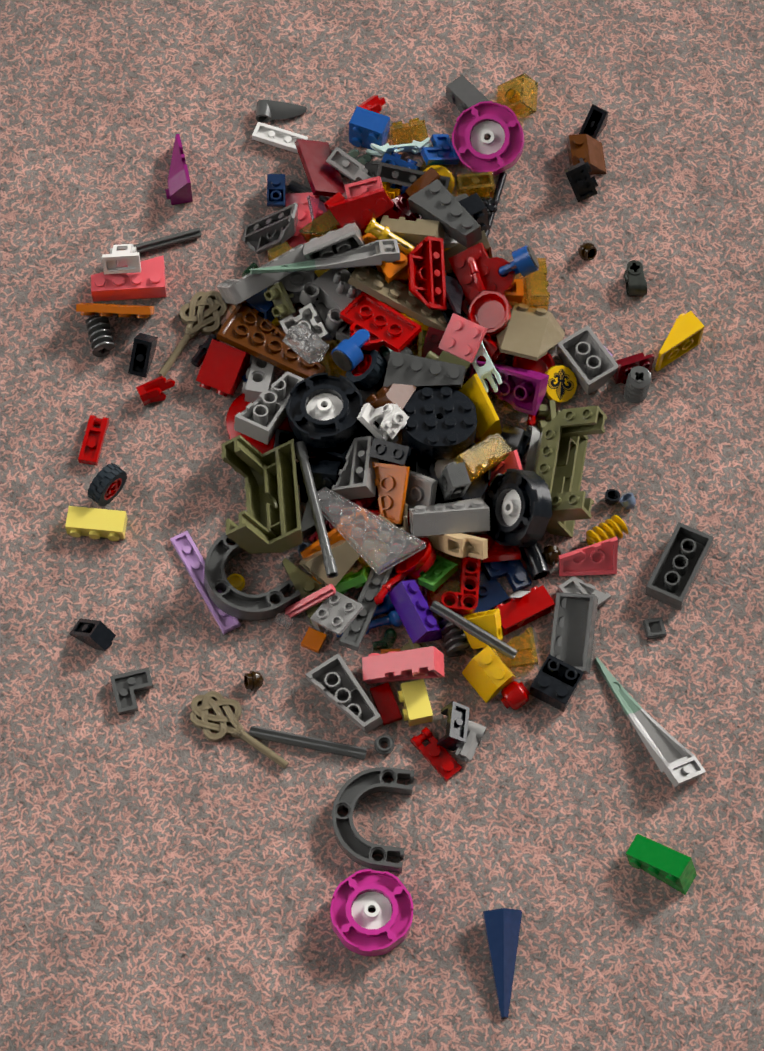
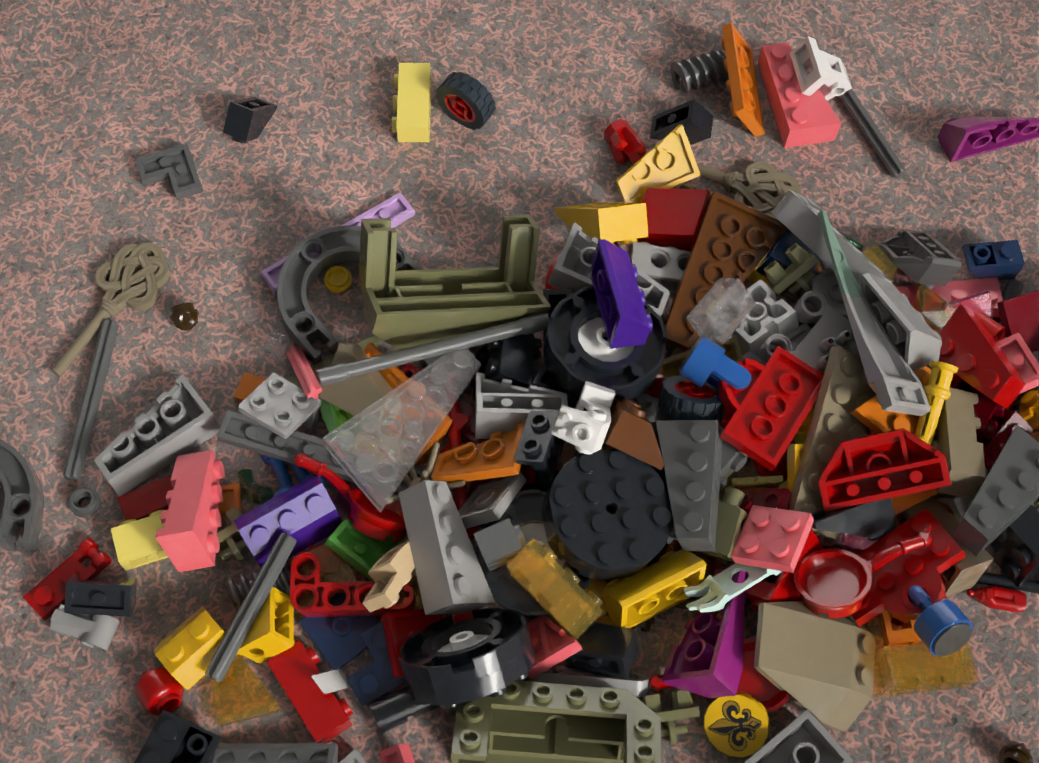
camera: 85 degrees right, 0 degrees up
(93, 440) = (541, 86): red plate -> none
(181, 371) = (662, 167): none -> yellow wing
(221, 406) = (608, 220): none -> yellow slope
(303, 392) = (619, 296): none -> dark purple slope
(495, 238) = (1000, 598): none -> red piece
(551, 554) = (414, 734): dark brown plate -> none

